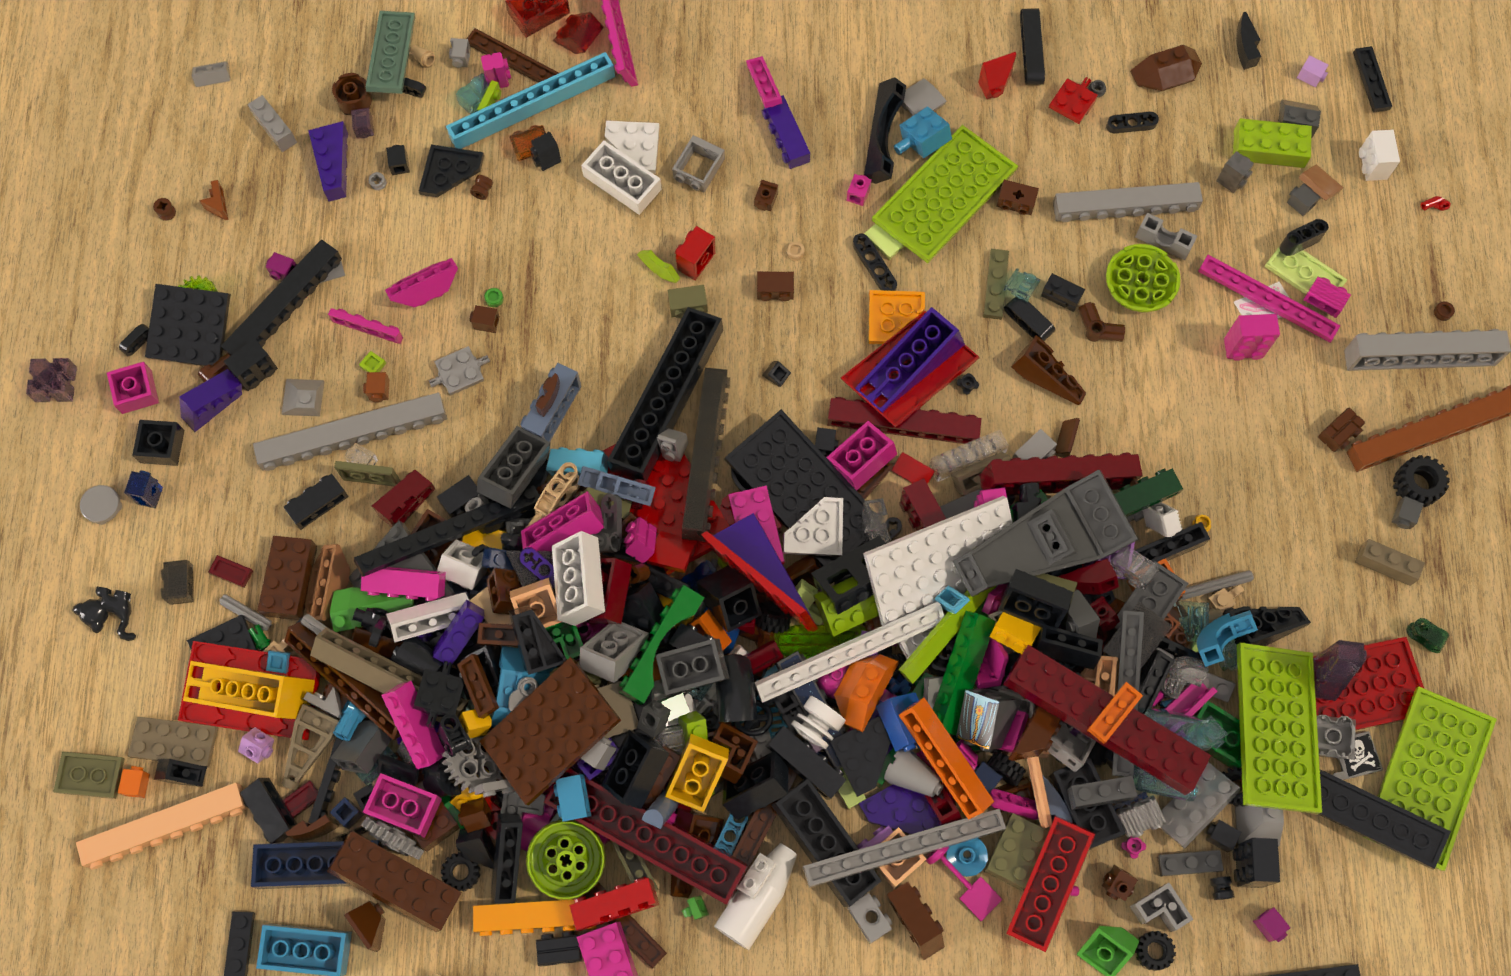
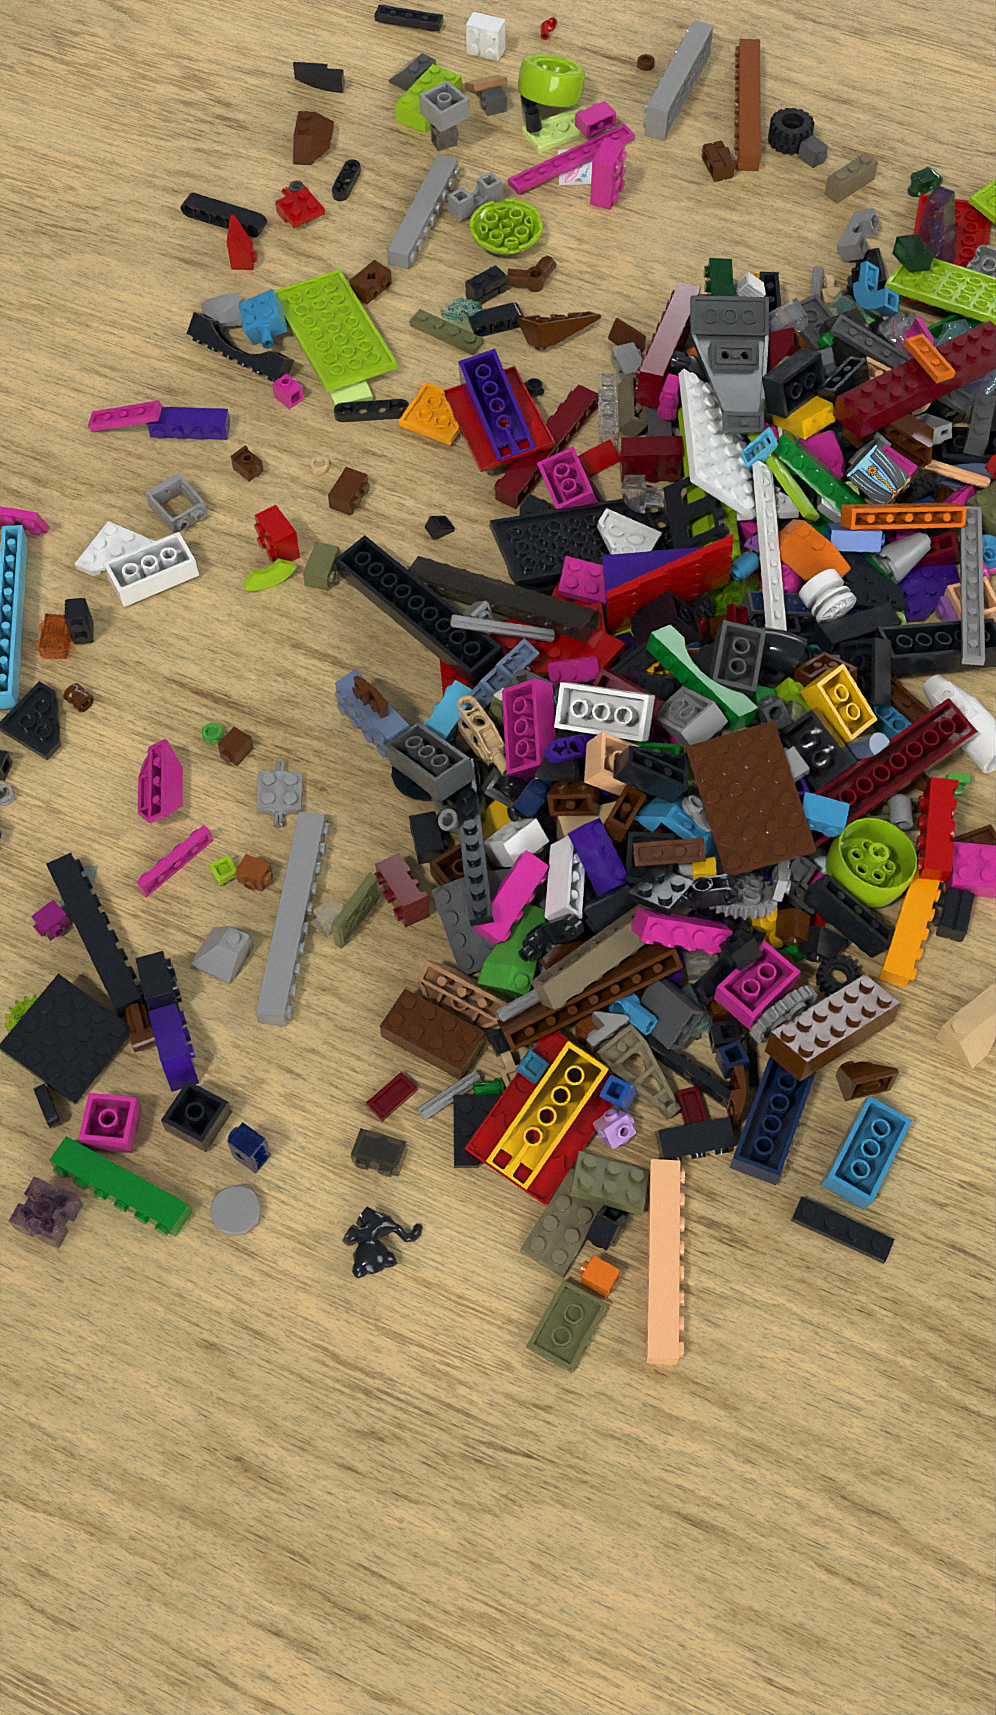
camera: 65 degrees left, 10 degrees down
(89, 420) = (120, 1186): none -> green brick
(208, 759) = (609, 1183): none -> olive plate
(278, 735) = (618, 1093): none -> blue brick
(315, 501) = (355, 978): black brick -> none
(415, 778) = (740, 950): none -> black brick
(624, 866) = (900, 811): none -> light grey brick
(662, 466) = (502, 628): none -> light grey axle
(826, 637) = (744, 566): none -> dark azure brick
(1116, 611) = (825, 340): none -> green plate
(1238, 160) = (444, 106): none -> light grey brick
(1298, 656) = (913, 253): none -> clear green brick
(1313, 71) = (377, 48): lavender brick -> none
(1328, 595) = (853, 242): none -> light grey arch
(1338, 243) = (551, 80): none -> lime wheel

